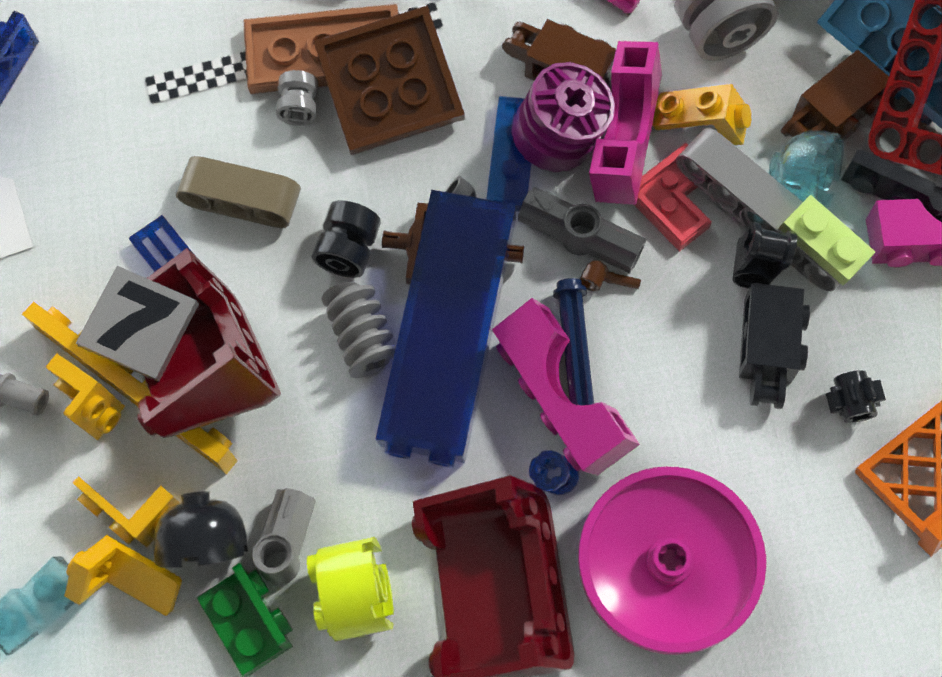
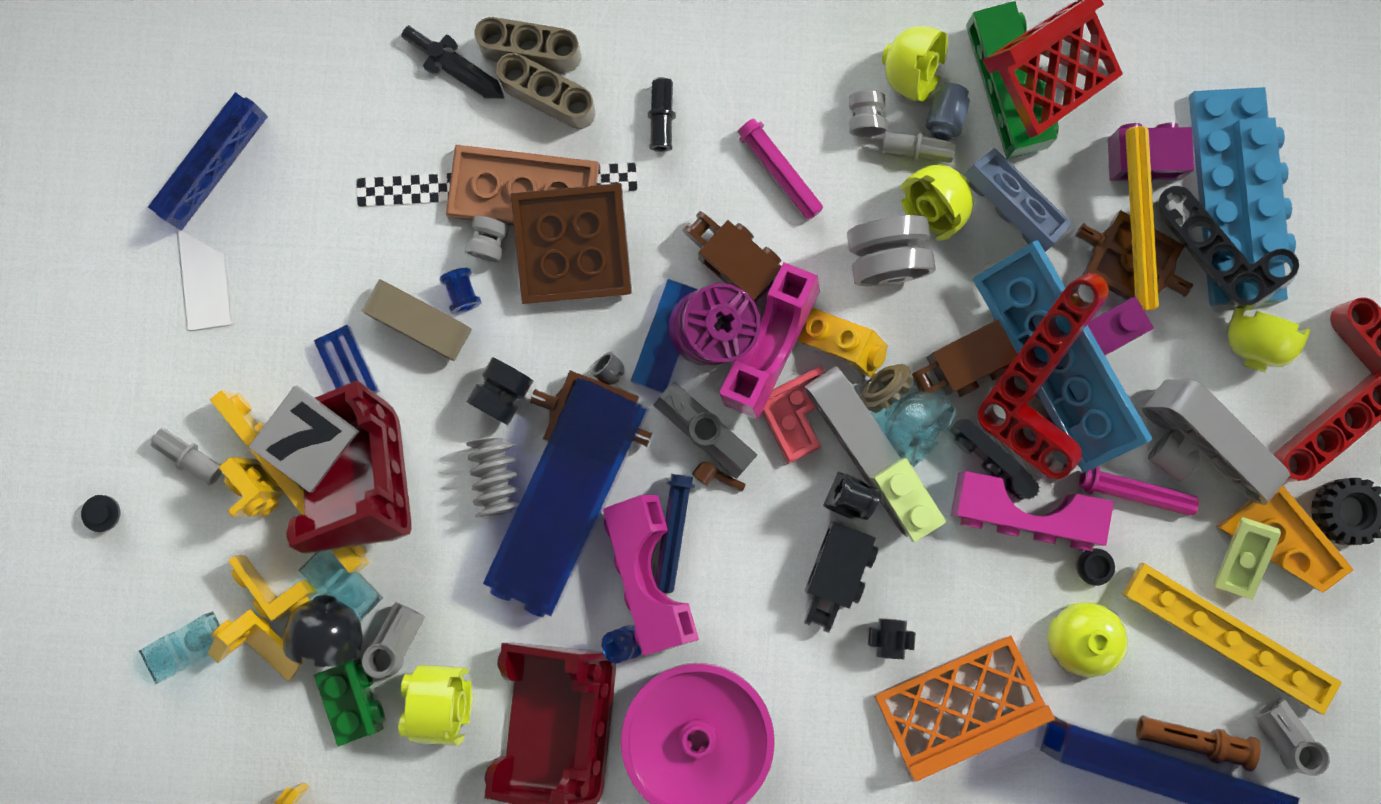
camera: 10 degrees right, 15 degrees up
(194, 473) = (332, 579): none -> clear light blue slope
(288, 154) = (460, 290): none -> clear blue bush
(766, 138) = (886, 387): none -> dark tan gear

